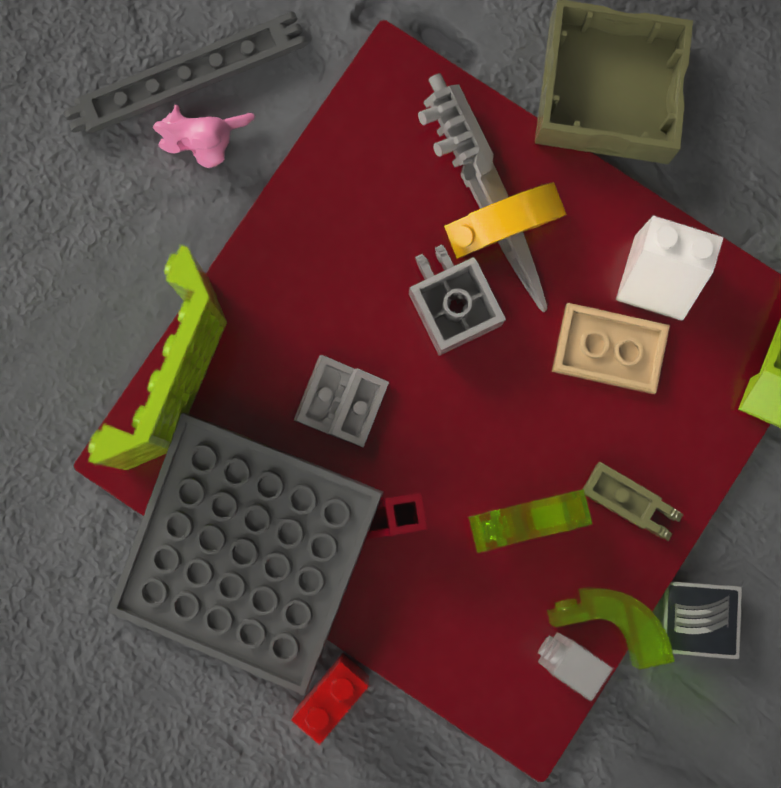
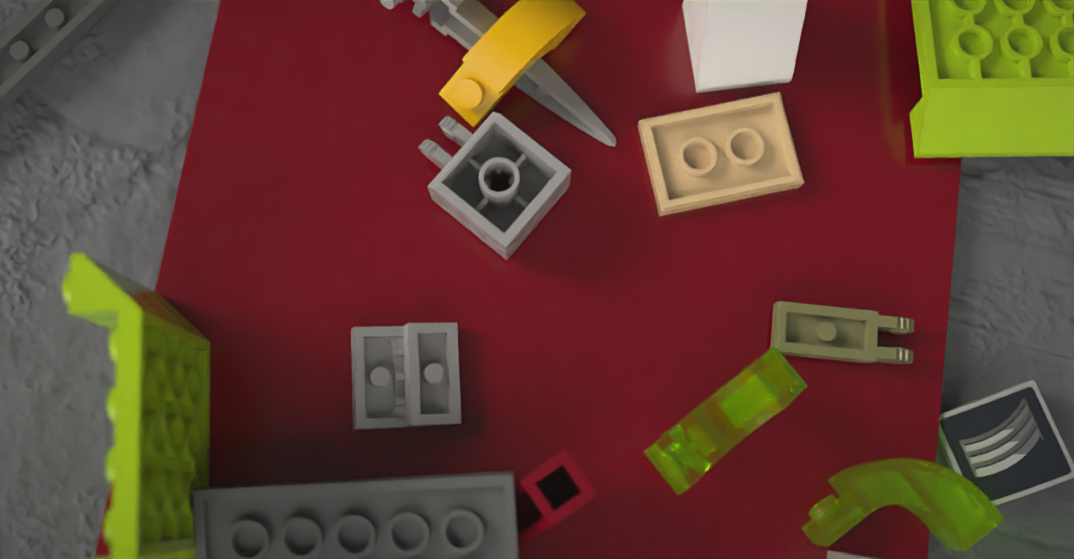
camera: 20 degrees left, 5 degrees down
(203, 136) = (77, 117): bright pink animal -> none

